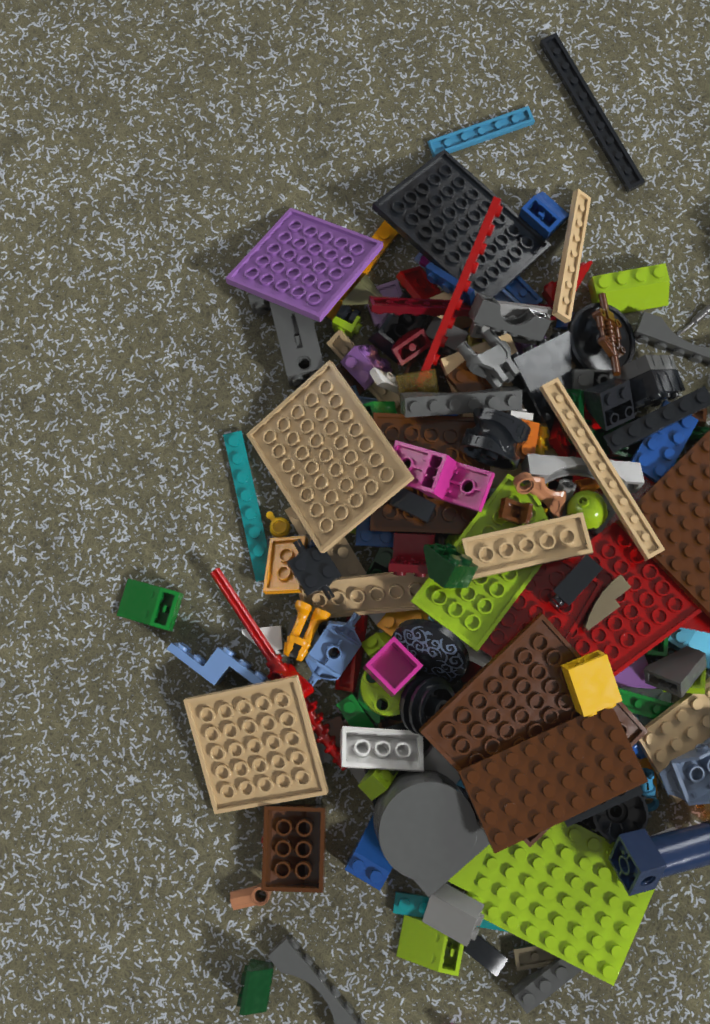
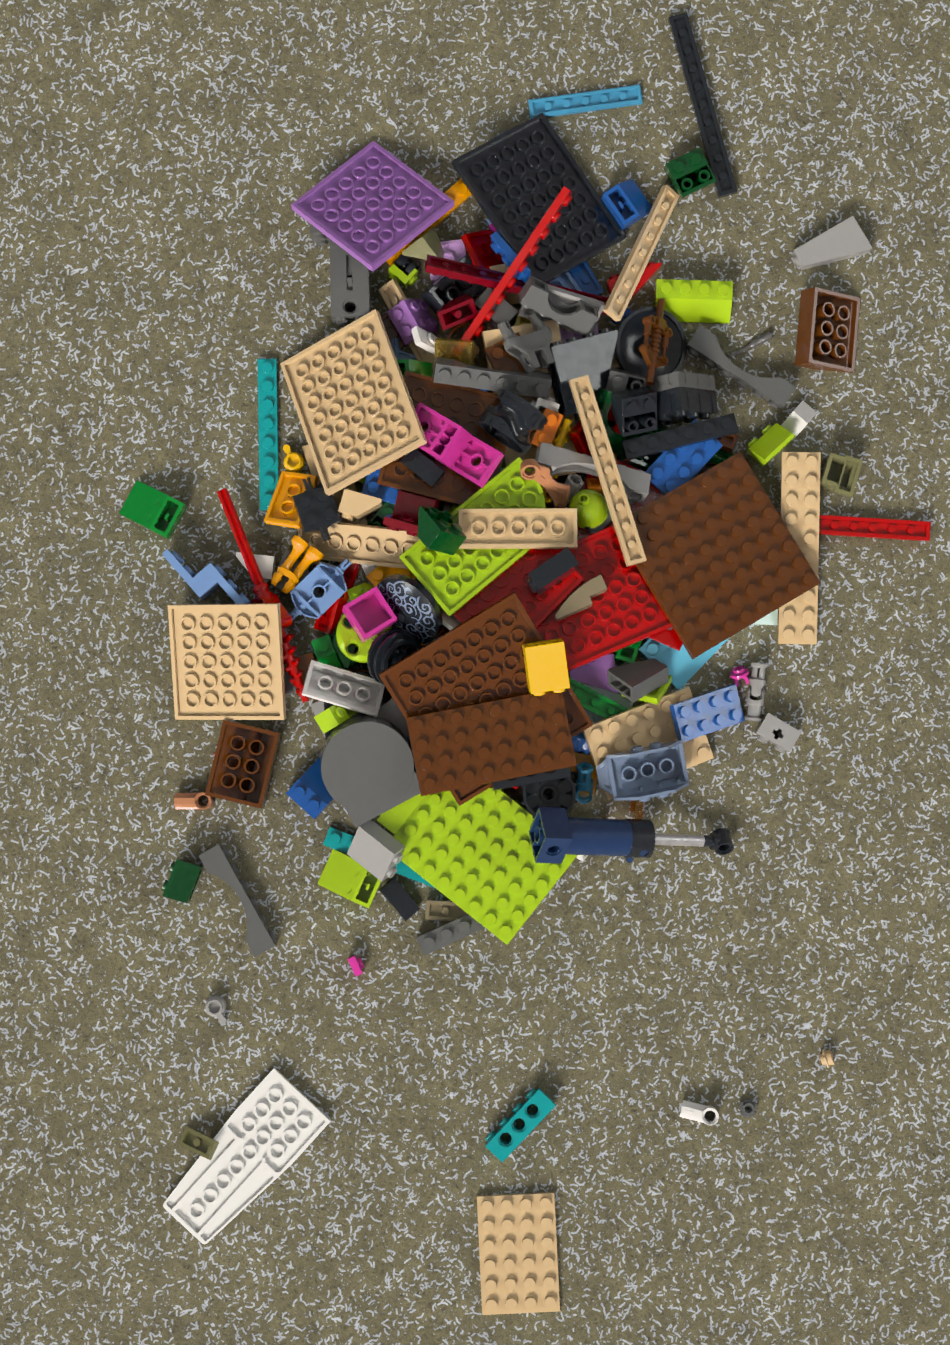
camera: 10 degrees right, 5 degrees up
(354, 556) = (358, 505): none -> tan slope
(515, 511) = (514, 494): reddish brown bracket -> none
(596, 173) = (689, 173): none -> dark green slope

